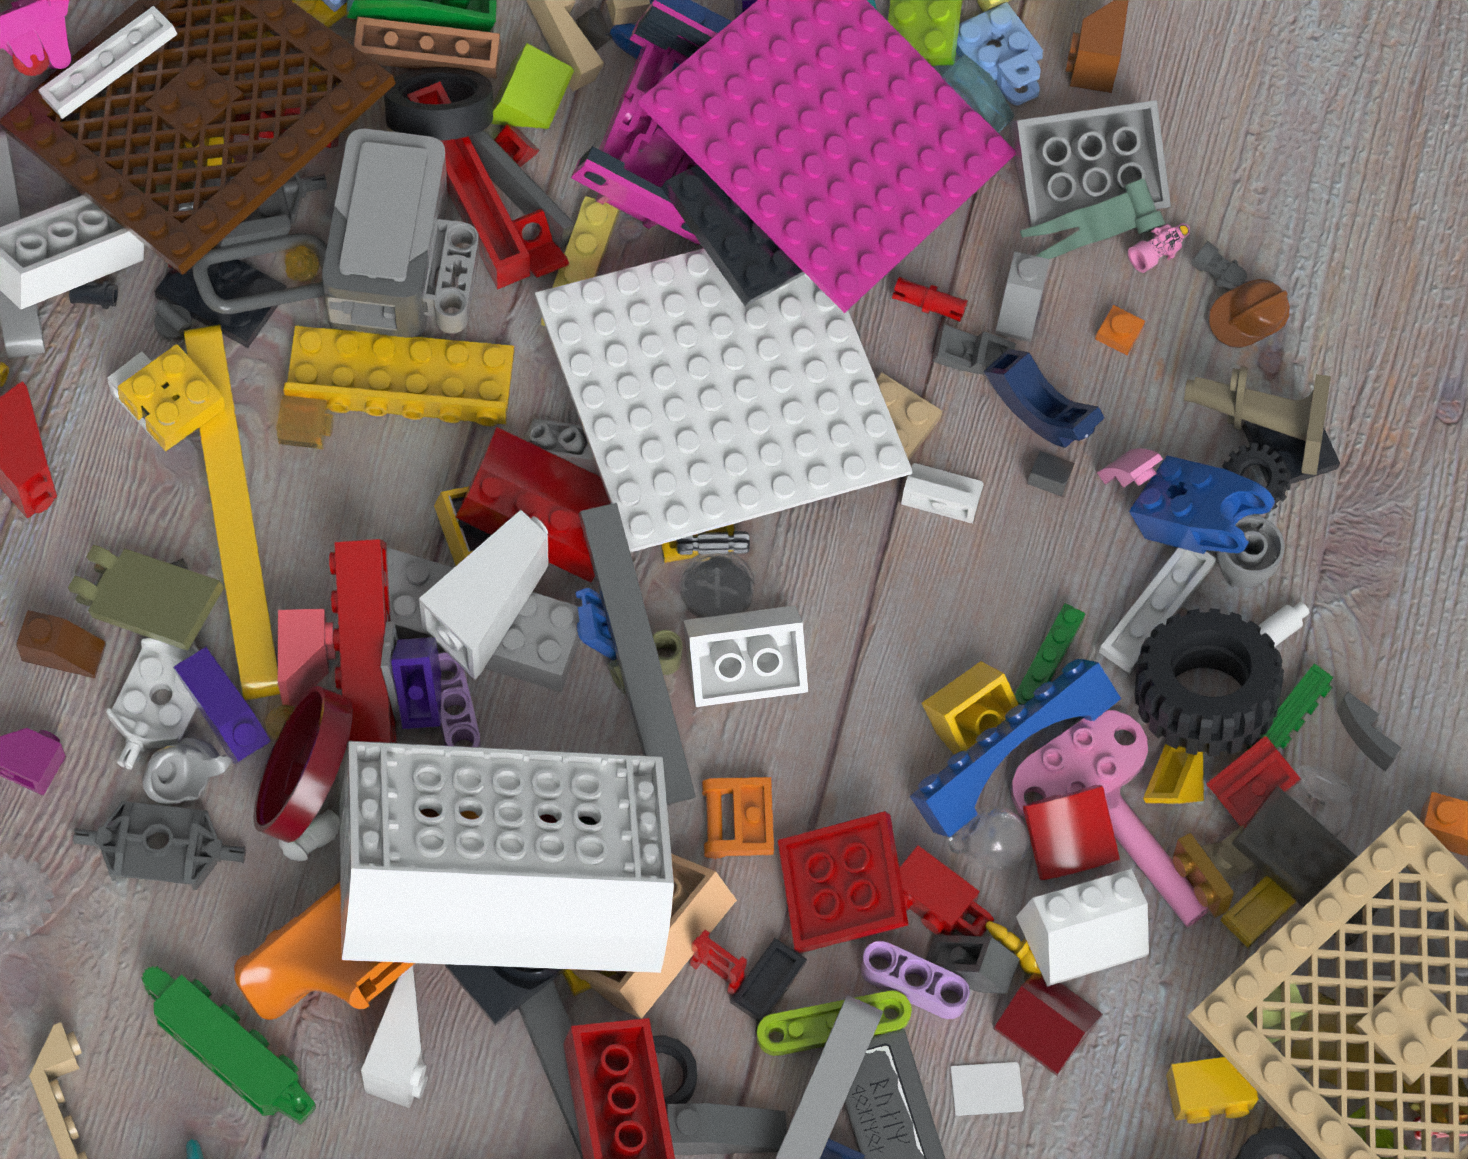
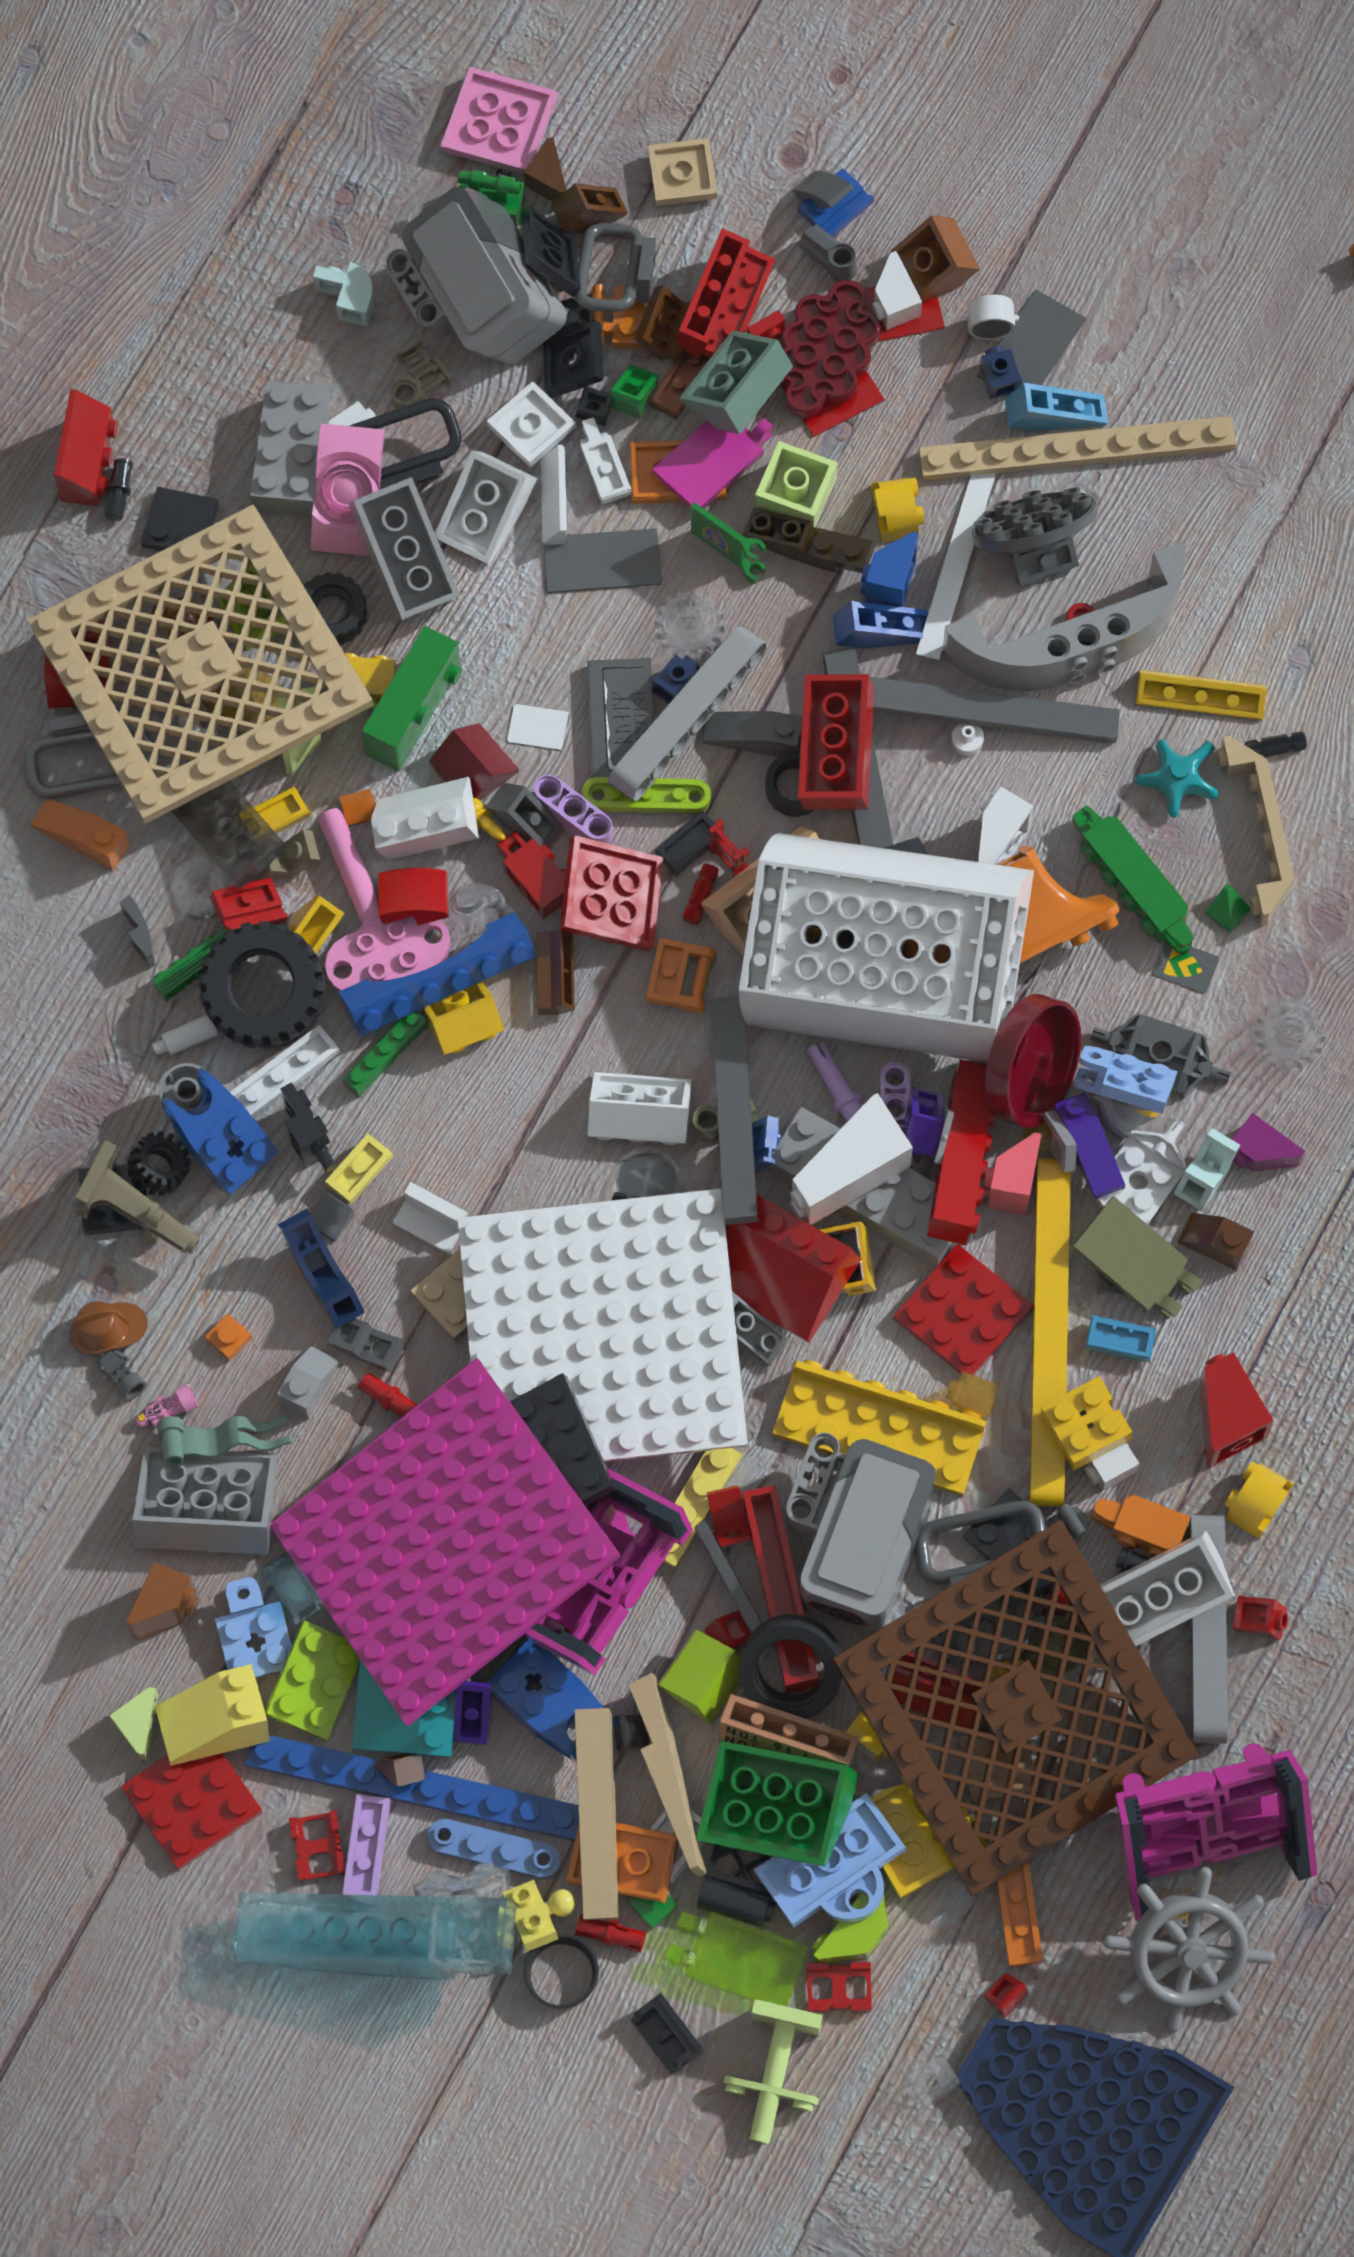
camera: 160 degrees left, 5 degrees up
(83, 712) = (1207, 1169): none -> light aqua brick
(93, 330) = (1142, 1523): none -> orange hinge
(107, 62) = (1089, 1769): white plate -> none
(107, 1040) = (1228, 908): none -> green slope
(137, 954) = (1189, 970): none -> dark grey sticker
(151, 518) = (1120, 1339): none -> dark azure plate
(209, 779) = (1125, 1078): none -> light blue plate
(257, 701) = (1062, 1143): none -> light grey tile
(309, 264) = (946, 1551): clear yellow plate -> none
(329, 504) = (963, 1312): none -> red plate
(513, 711) = (846, 1101): none -> lavender pin
(740, 919) = (700, 892): none -> red axle
(883, 784) = (555, 972): none -> reddish brown piece
(1037, 525) = (359, 1169): none -> light yellow plate
(1106, 540) = (305, 1132): none -> black plate
(1132, 466) = (265, 1191): bright pink slope -> none
(1145, 1066) = (412, 698): none -> green brick
(1170, 938) = (357, 807): none -> orange slope
(1208, 883) = (324, 845): pearl gold plate -> none

